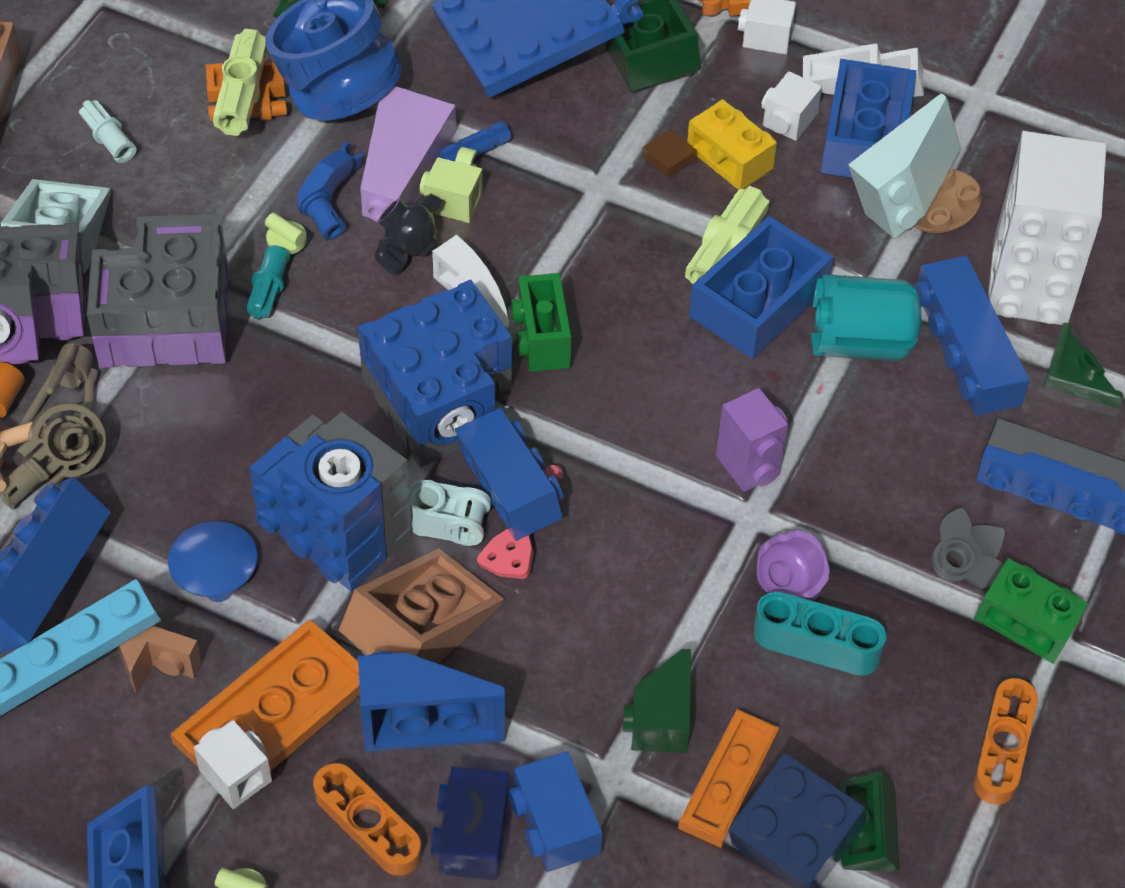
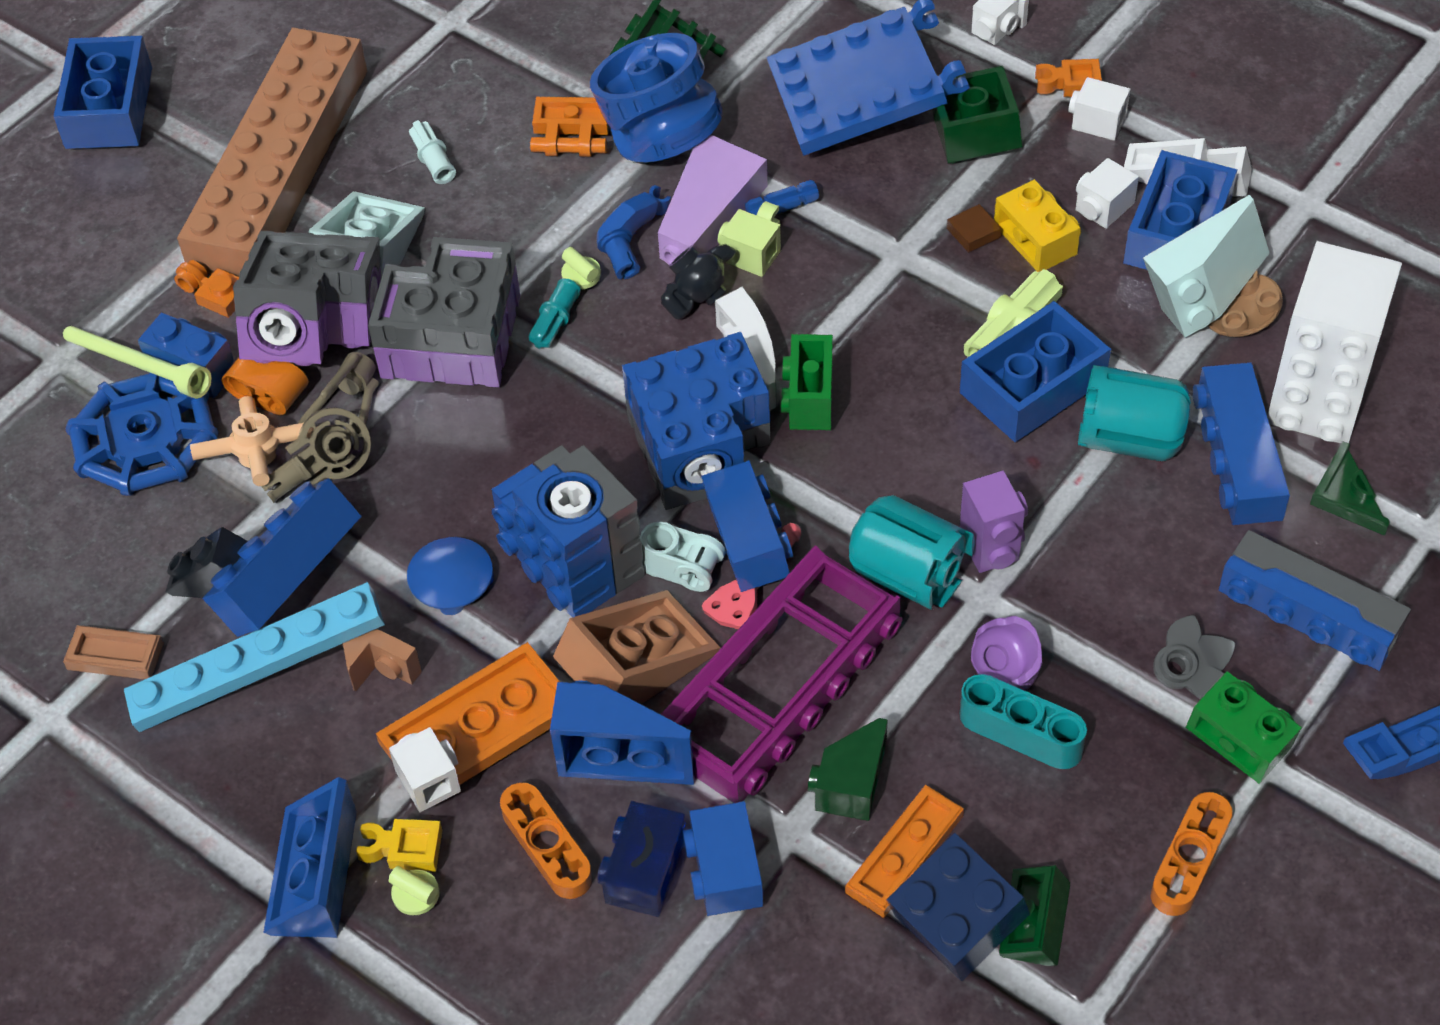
camera: 15 degrees right, 0 degrees up
(228, 844) = (408, 845): none -> yellow plate
(240, 82) = (562, 118): yellowish green piece -> none
(605, 649) = (806, 707): none -> magenta window
(676, 478) = (909, 550): none -> teal cylinder

